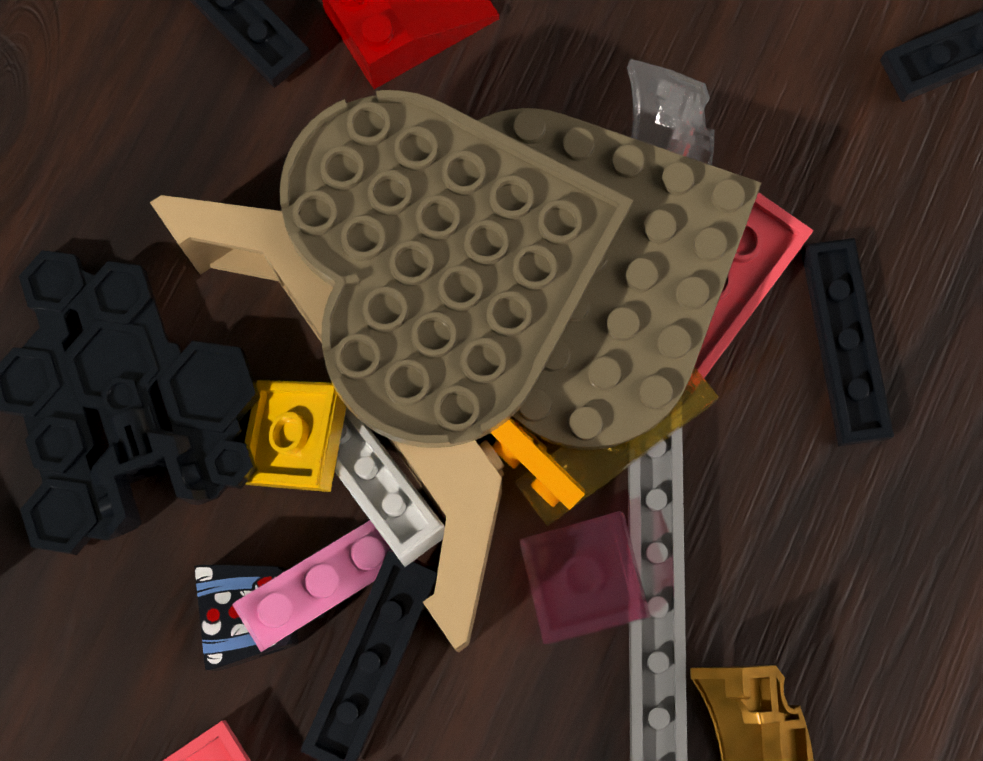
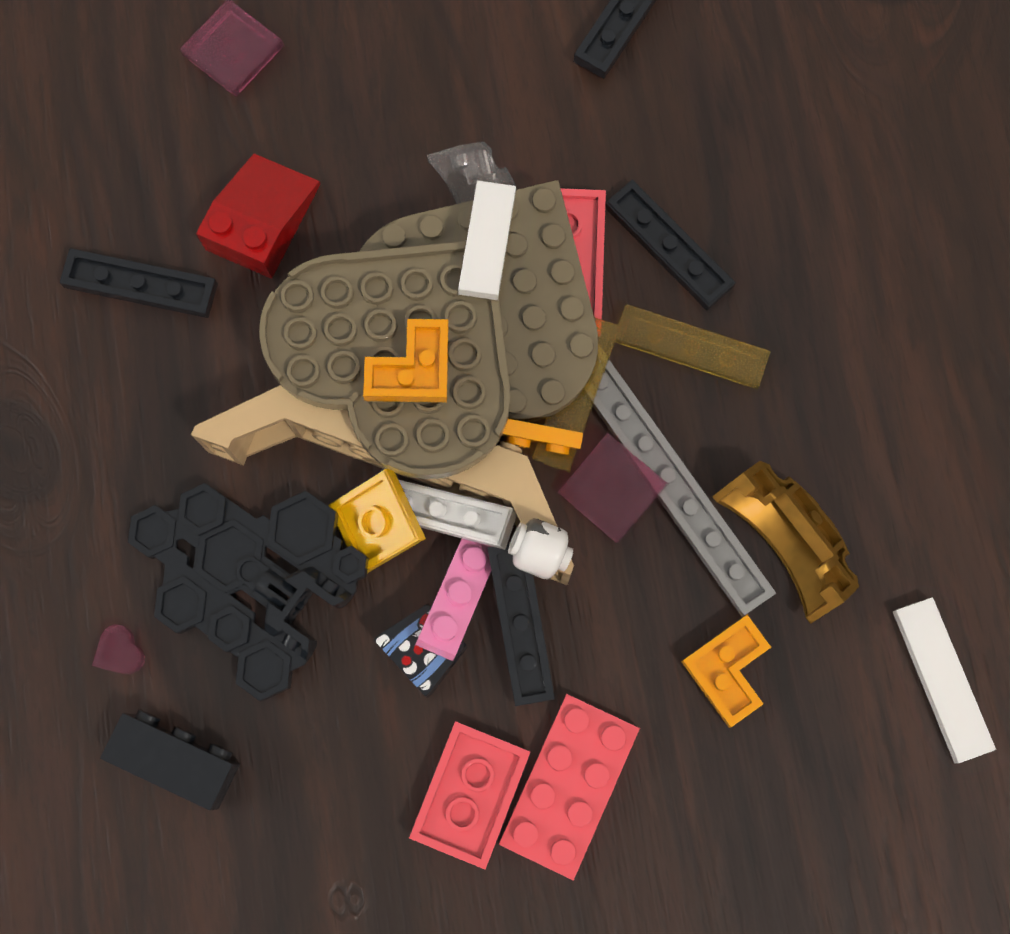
camera: 35 degrees left, 0 degrees up
(437, 596) = (540, 548): none -> white head
(438, 302) = (420, 374): none -> light orange plate
(625, 198) = (487, 240): none -> white tile
(791, 477) = (692, 346): none -> clear yellow tile

